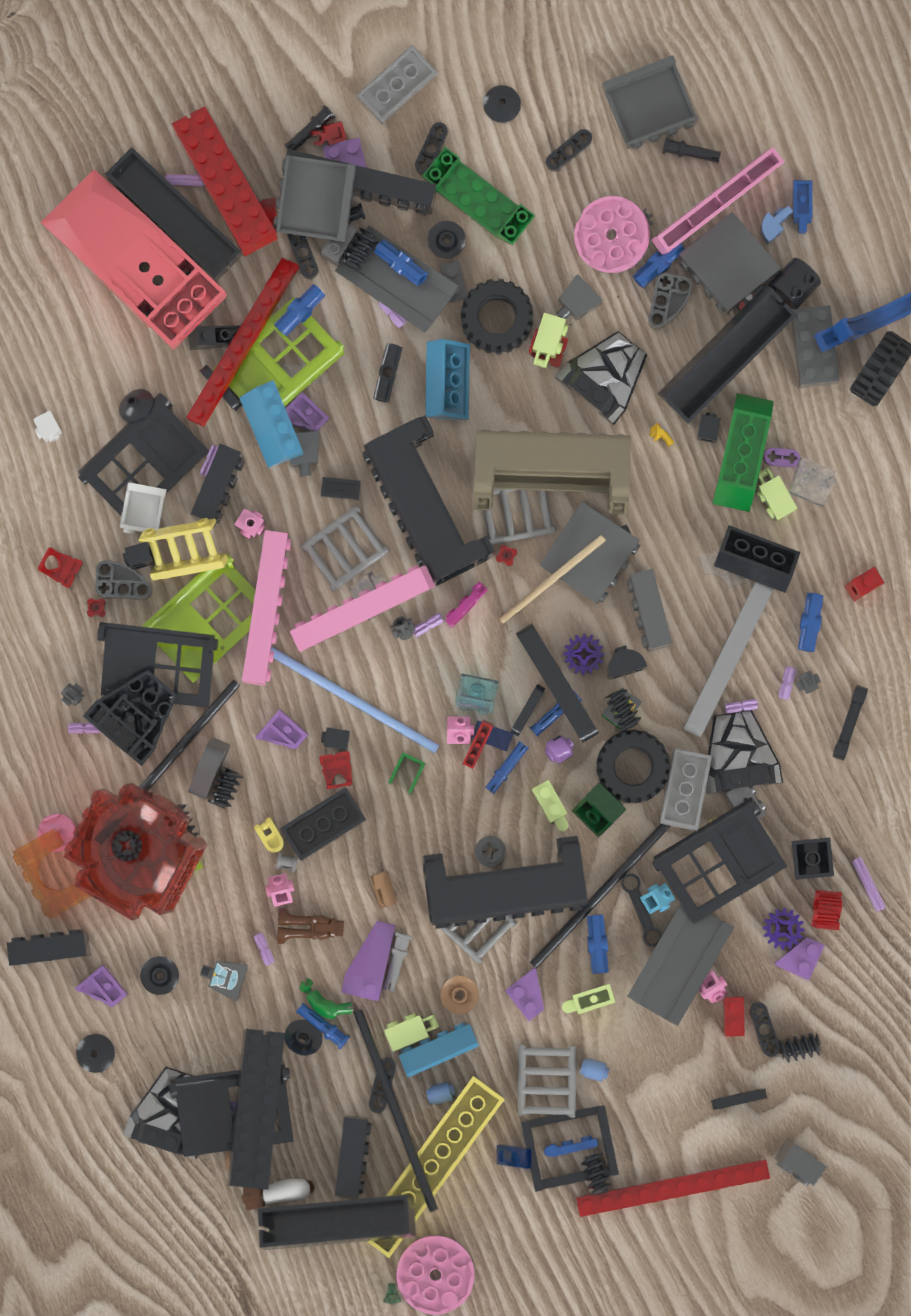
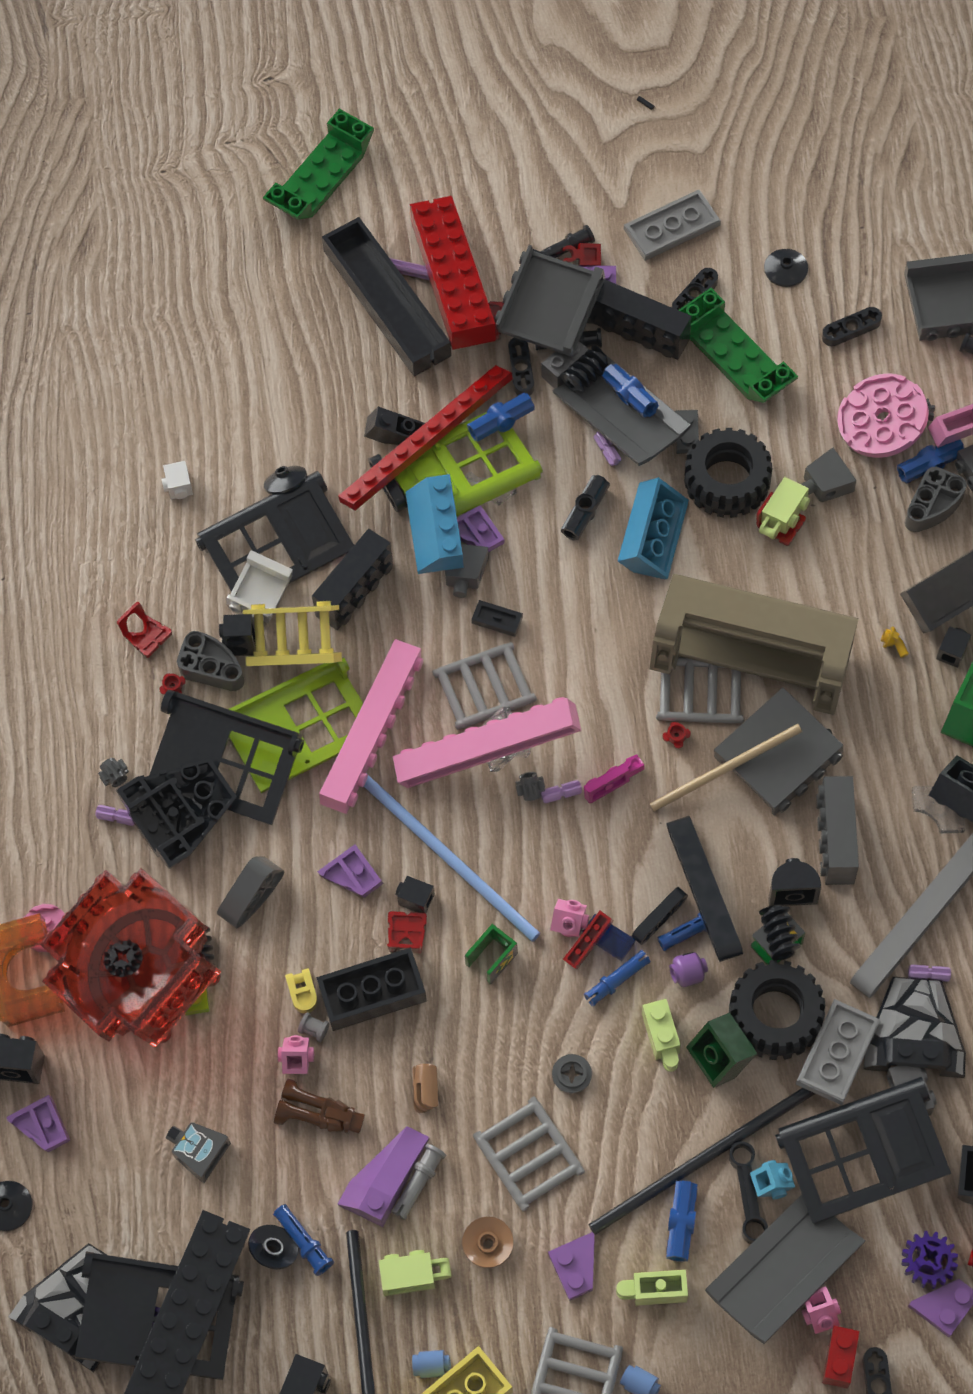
camera: 15 degrees right, 20 degrees down
(84, 100) = (323, 168): none -> green slope
(113, 240) = (300, 300): coral piece -> none
(149, 975) = (115, 1114): black dish -> none
(190, 735) = (243, 850): black piece -> none
(225, 788) = (262, 920): black piece -> none
(247, 517) = (379, 630): bright pink brick -> none
(262, 946) = (255, 1130): lavender piece -> none
(321, 1005) = (310, 1215): green arm -> none
(374, 1097) = (342, 1348): black beam -> none
(420, 504) = (584, 647): black piece -> none
(438, 1050) = (443, 1305): dark azure slope -> none
(444, 230) = (691, 377): black dish -> none
(476, 694) = (600, 881): clear light blue brick -> none
(505, 890) = (579, 1116): black piece -> none
(583, 646) = (733, 863): dark purple gear -> none
(606, 375) = (843, 564): wedge -> none

